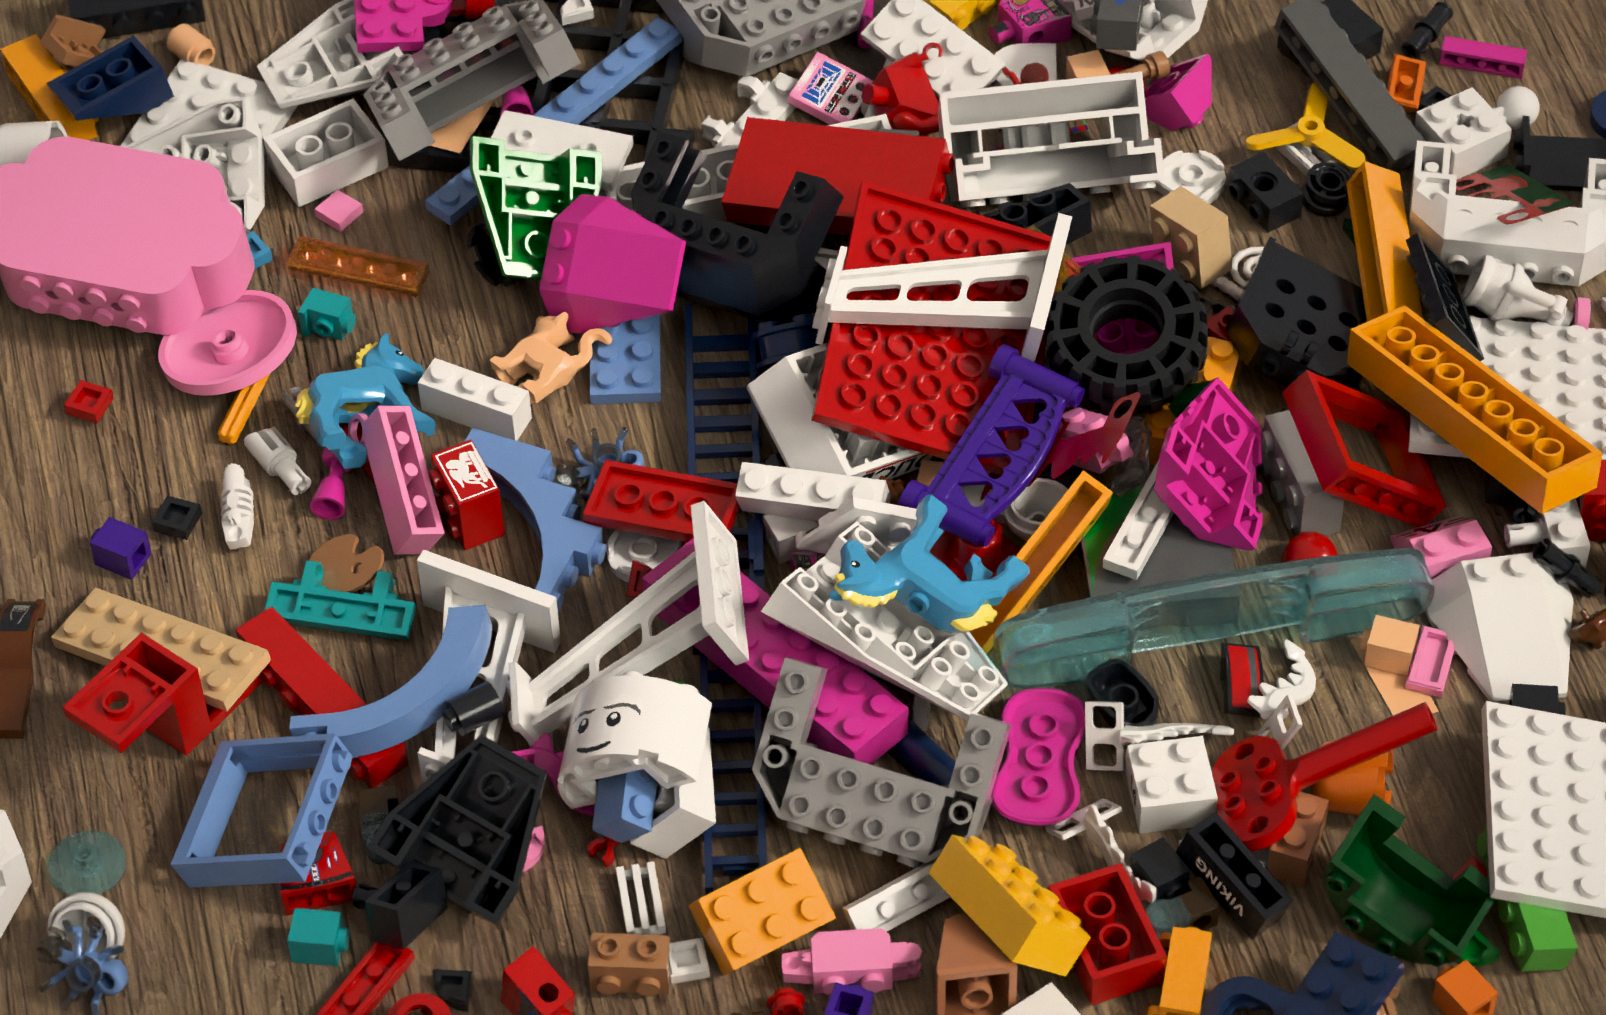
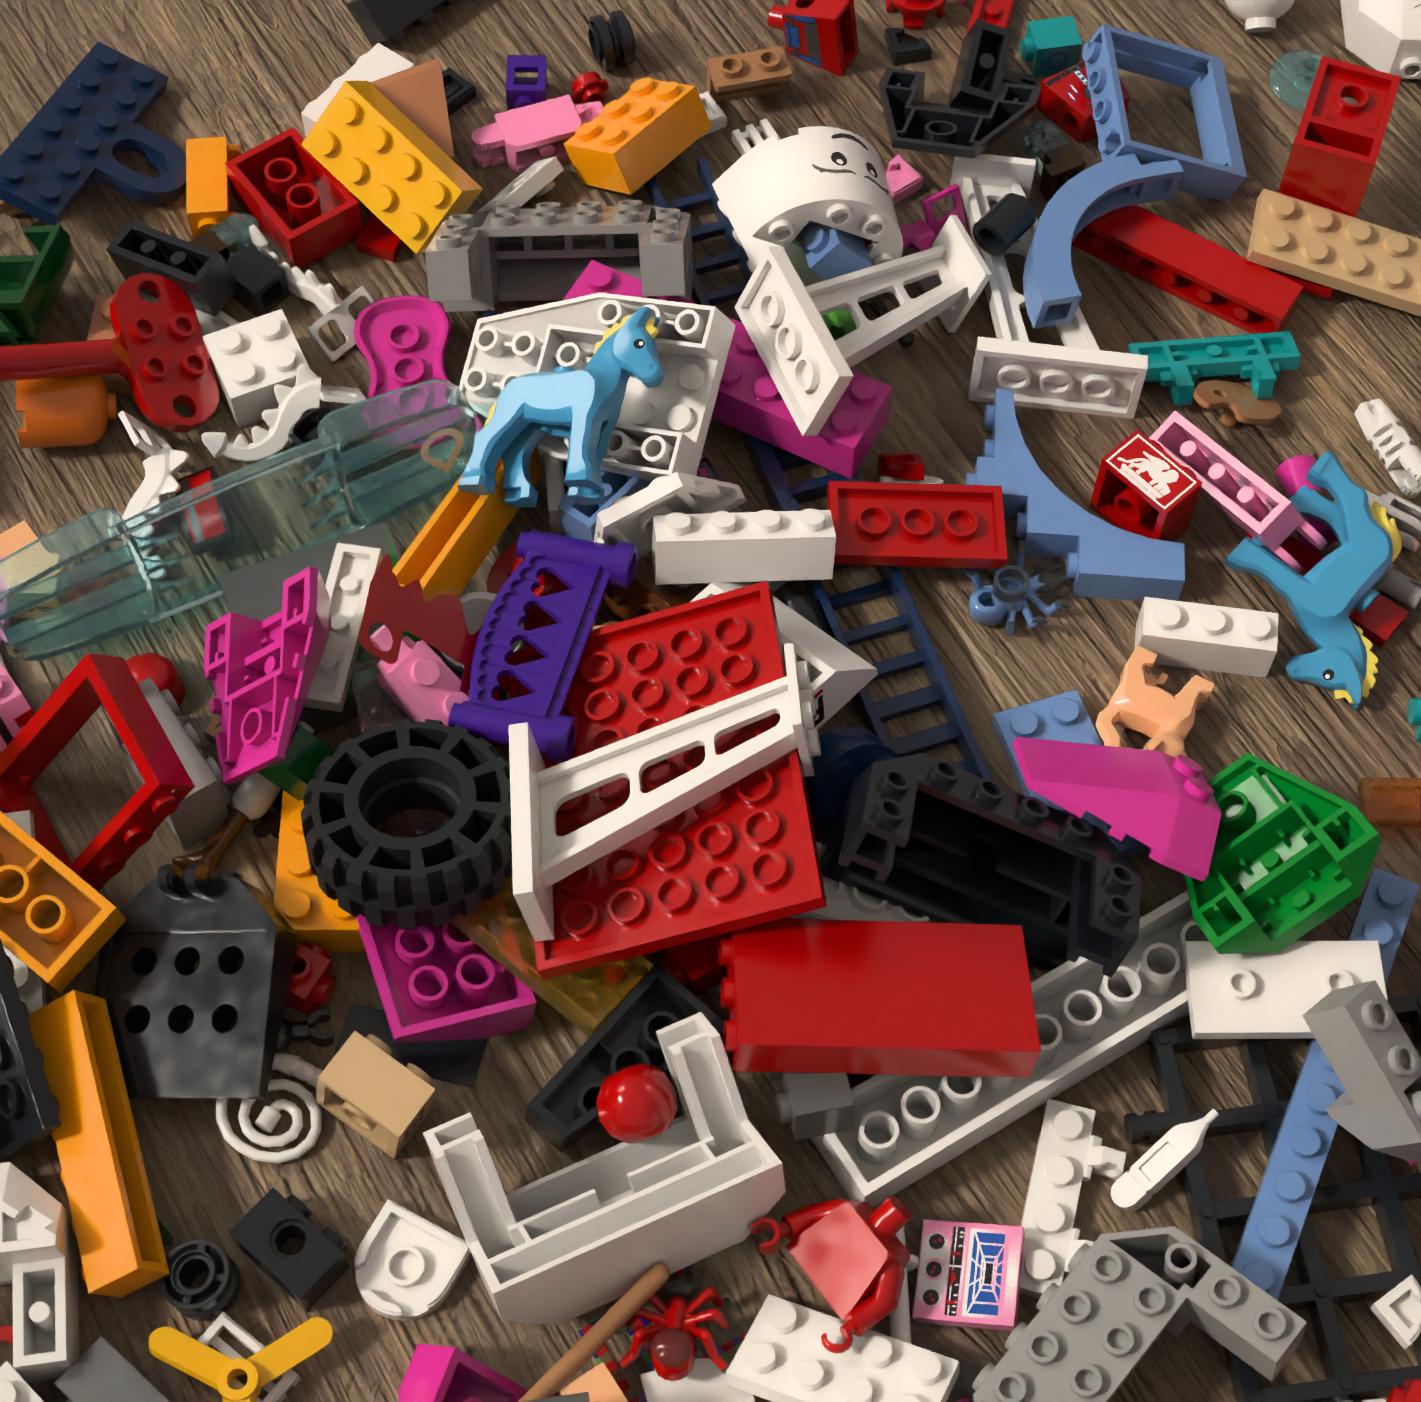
camera: 160 degrees right, 10 degrees up
(682, 111) = (1160, 1163): none -> white piece
(1015, 182) = (637, 1103): none -> red hair

